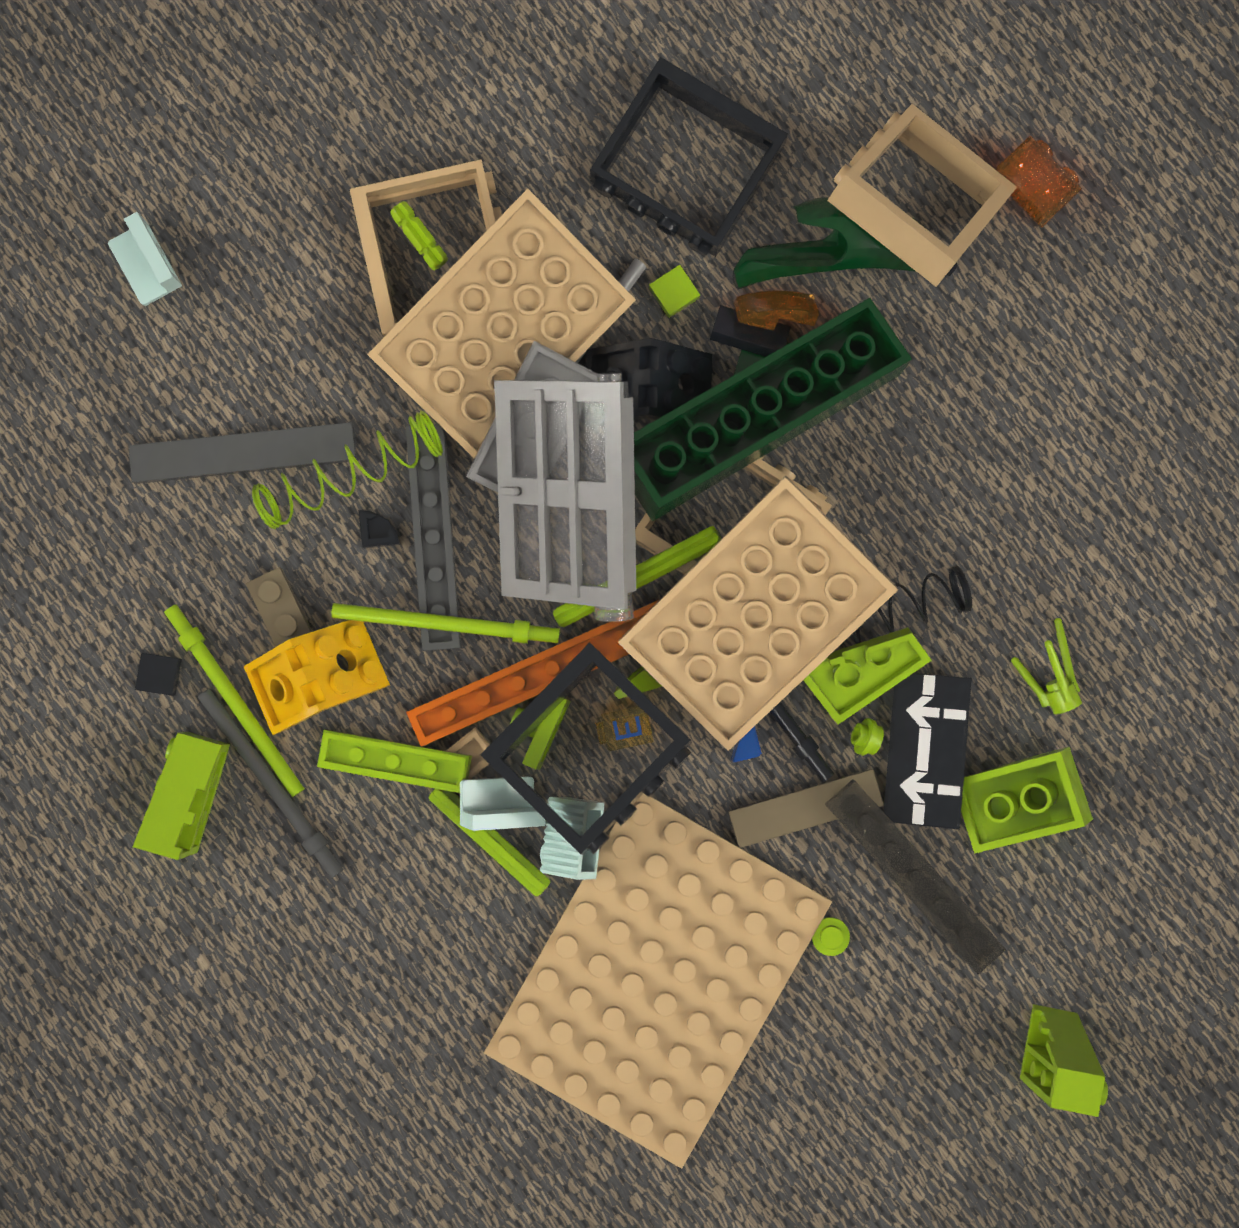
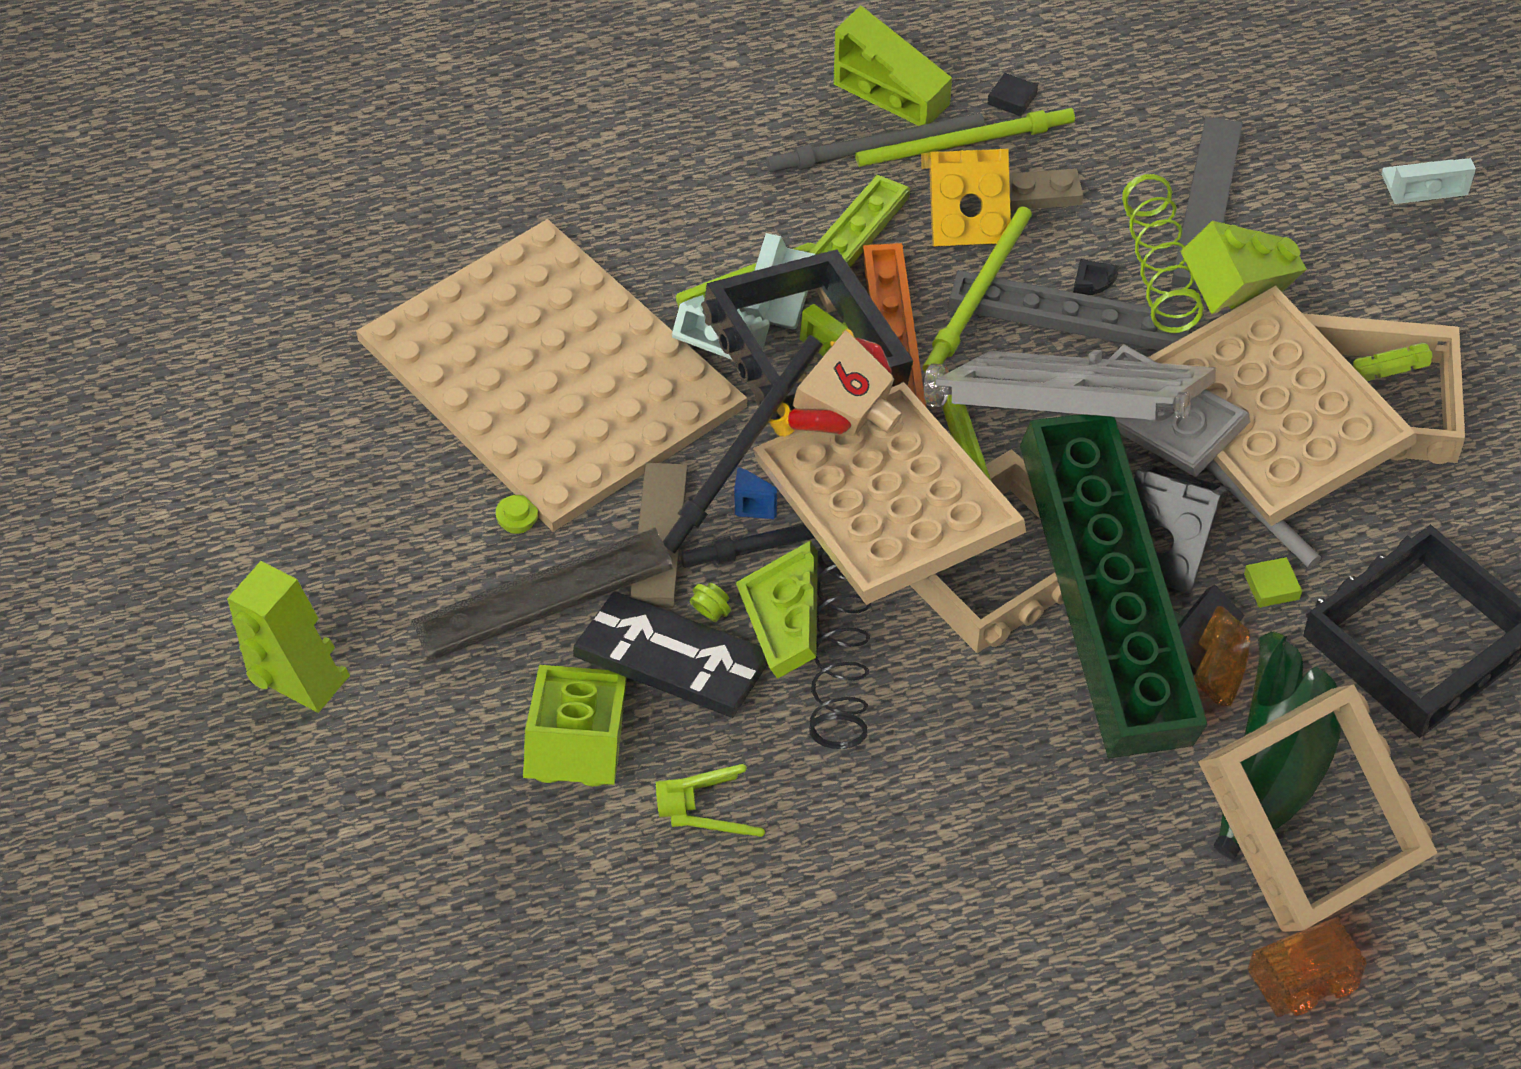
camera: 115 degrees right, 35 degrees down
(359, 387) = (1240, 264): none -> lime wedge
(670, 683) = (842, 392): none -> tan torso
(797, 779) = (693, 511): none -> black bar

